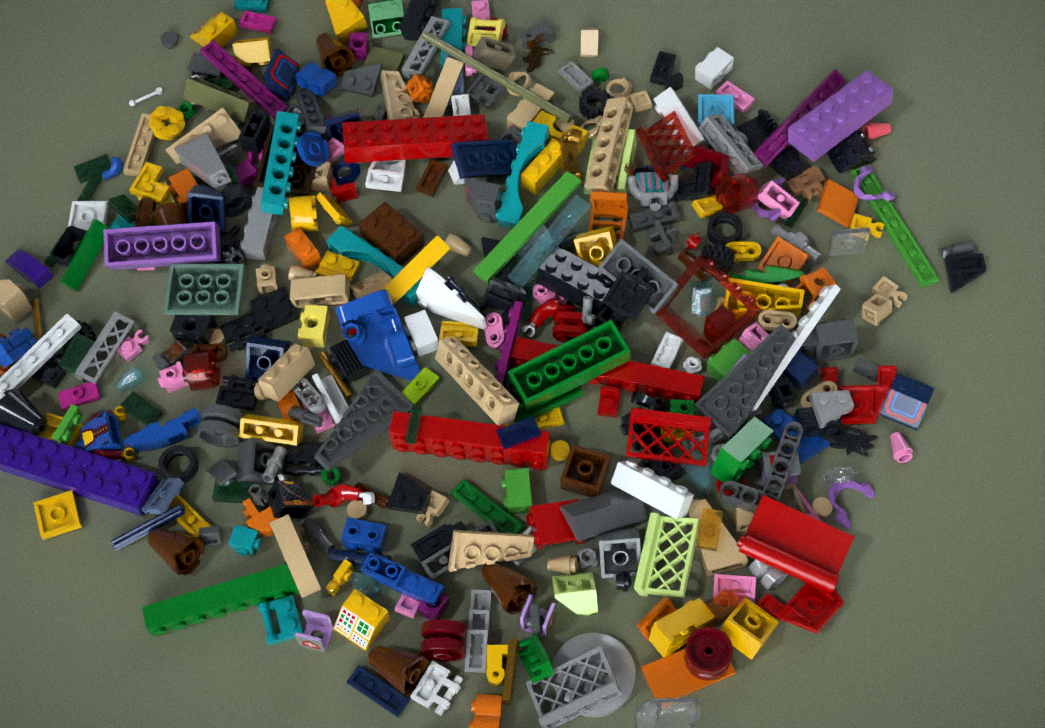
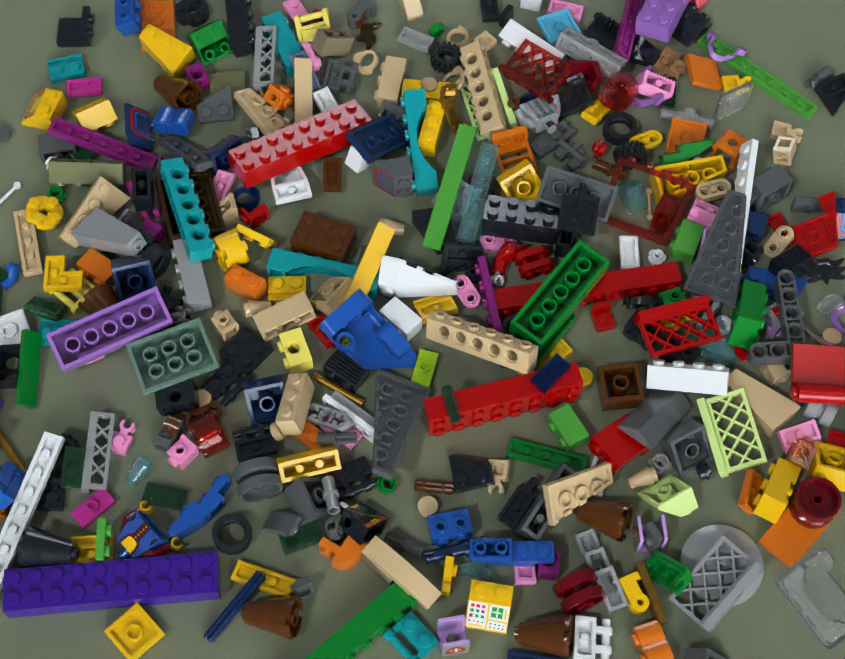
camera: 30 degrees left, 0 degrees up
(143, 212) = (69, 306): reddish brown beam -> none
(162, 496) = (235, 570): sand blue plate -> none
(245, 541) = (338, 579): teal brick -> none
(313, 149) = (209, 185): blue tile -> none
(342, 493) = (405, 498): red arm -> none
(533, 98) = (349, 61): olive piece -> none
(587, 316) = (544, 241): light grey arm -> none
(709, 529) = (757, 393): clear yellow plate -> none
(830, 405) = (797, 246): light grey wing -> none

